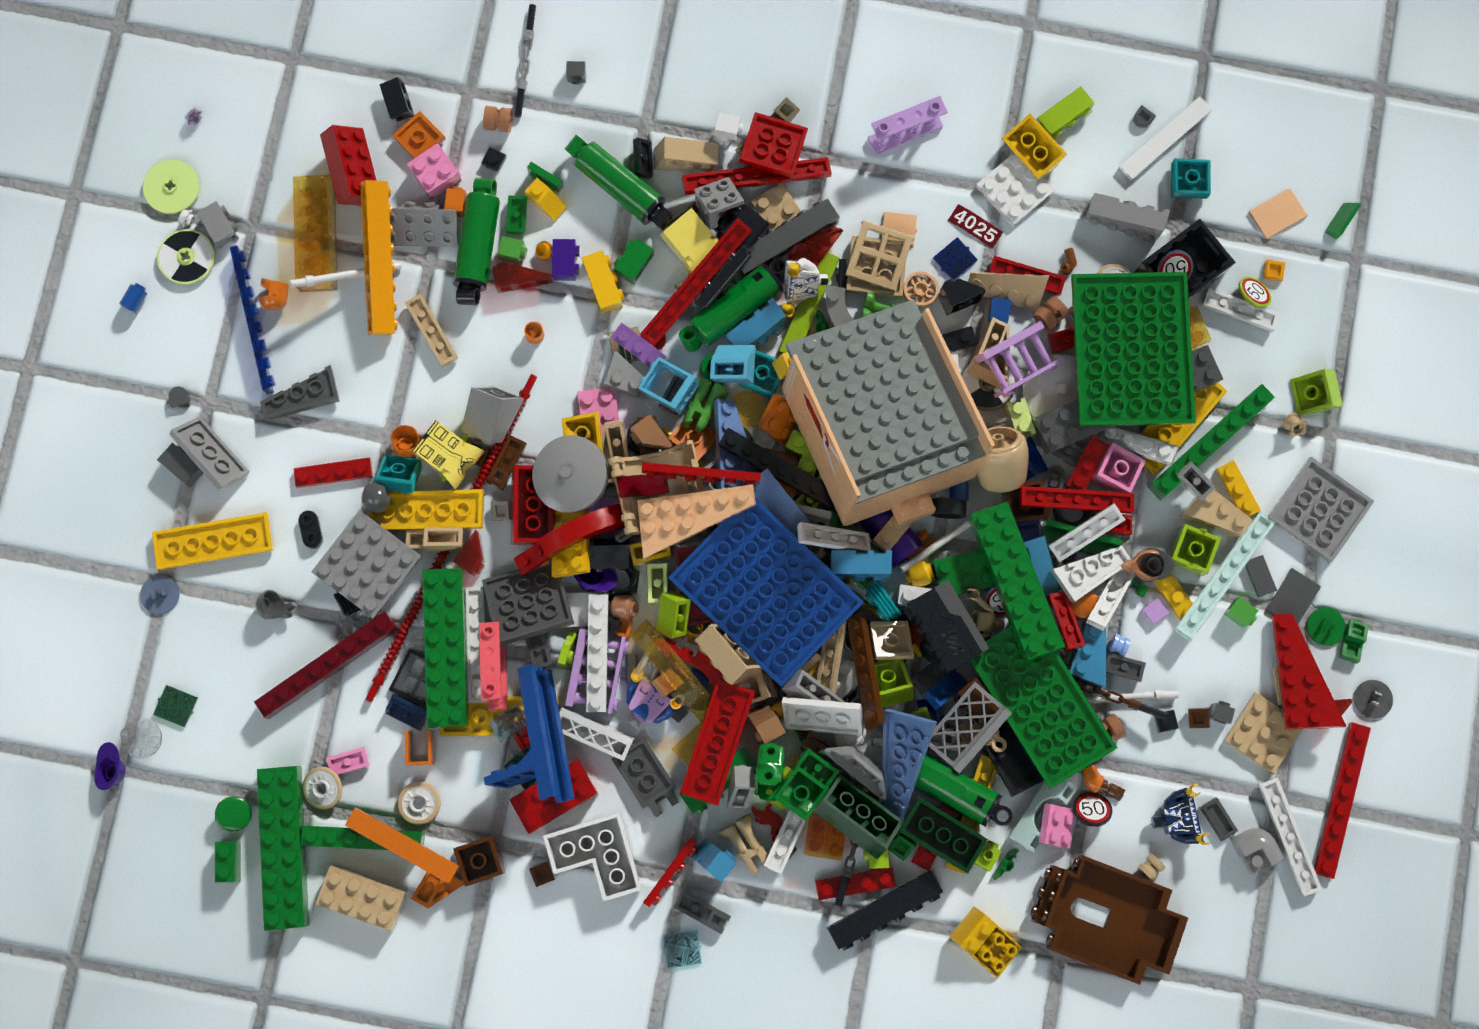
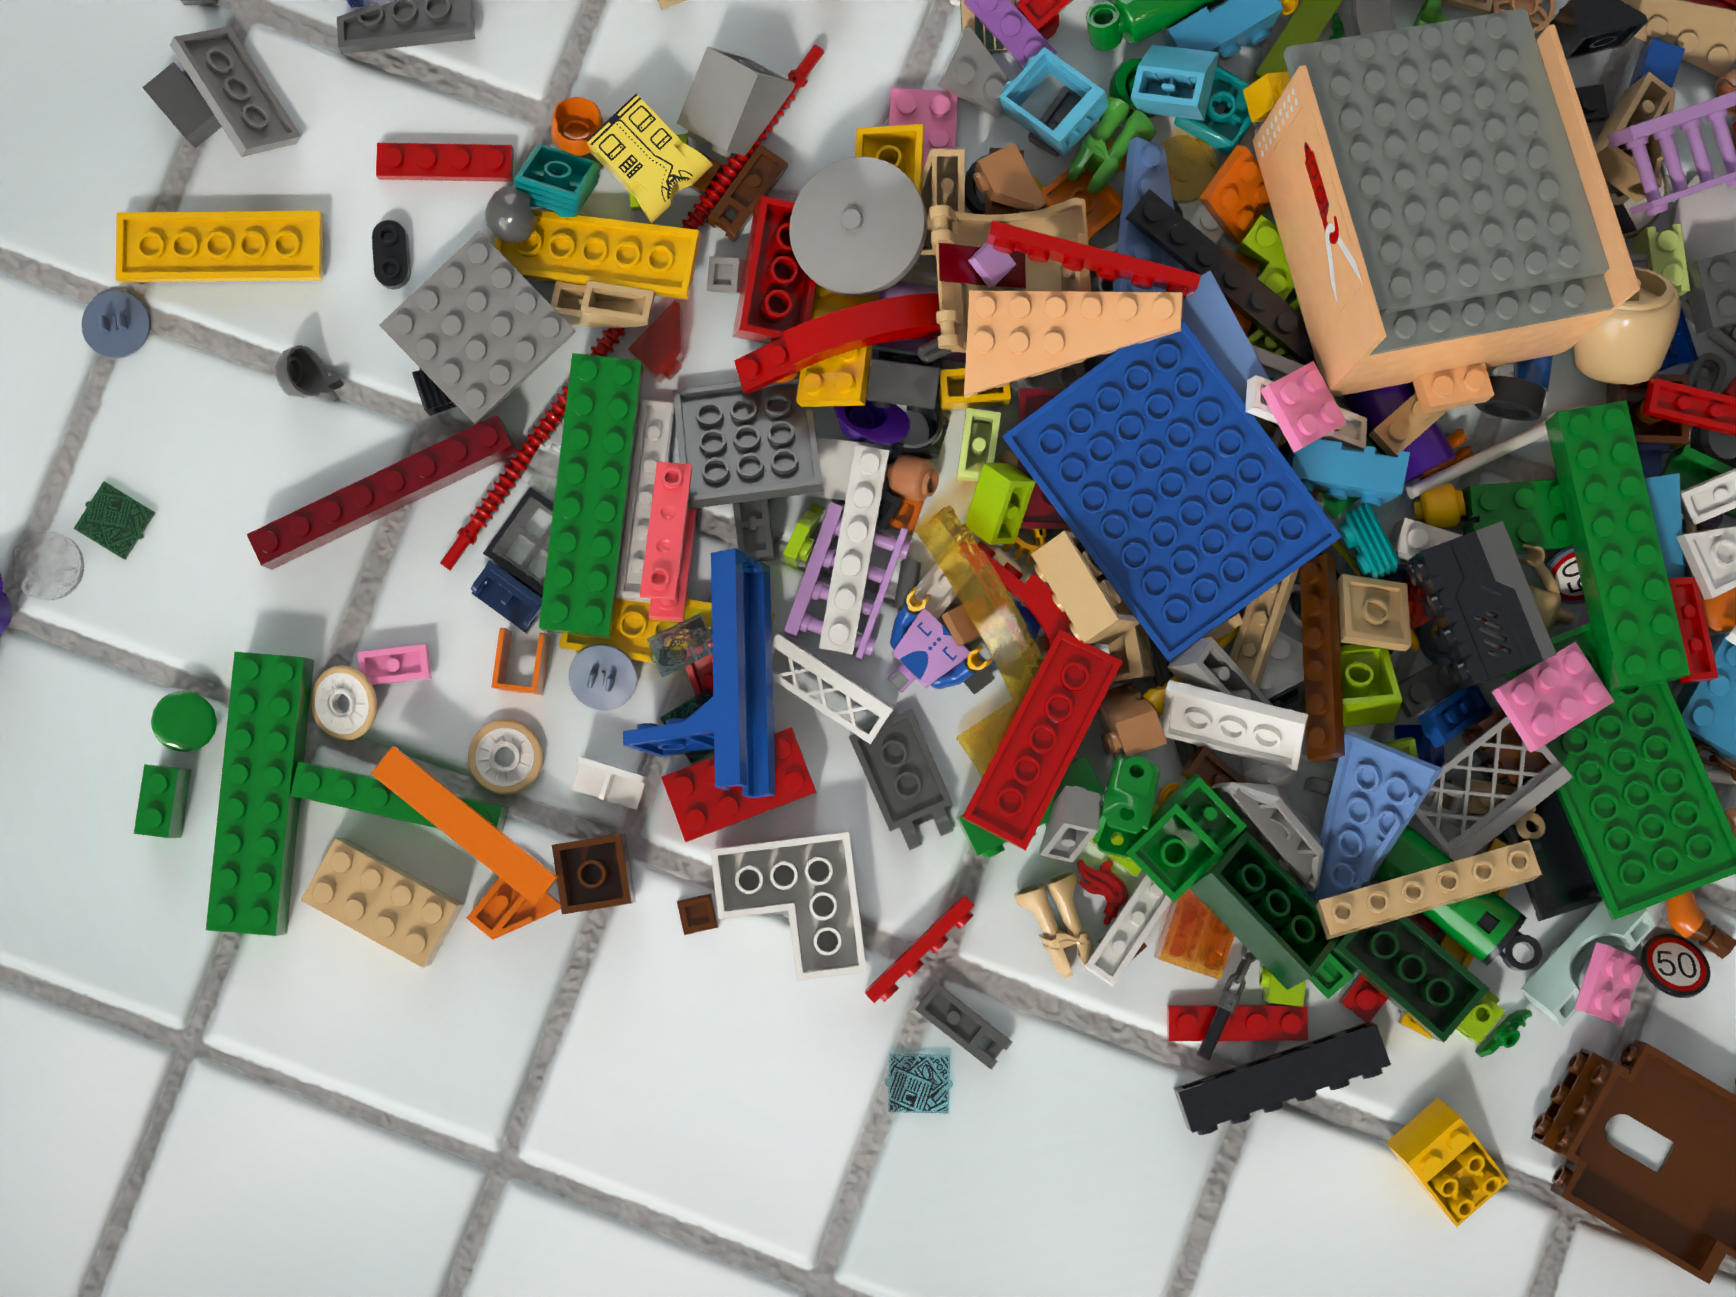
camera: 15 degrees right, 5 degrees up
(467, 748) = (602, 677): none -> sand blue piece
(480, 808) = (609, 783): none -> white panel
(647, 484) = (991, 264): none -> lavender tile
(714, 860) = (1001, 942): dark azure wedge -> none
(830, 534) = (1303, 406): none -> bright pink plate
(942, 789) = (1428, 889): none -> tan brick
(994, 671) = (1552, 697): none -> bright pink plate

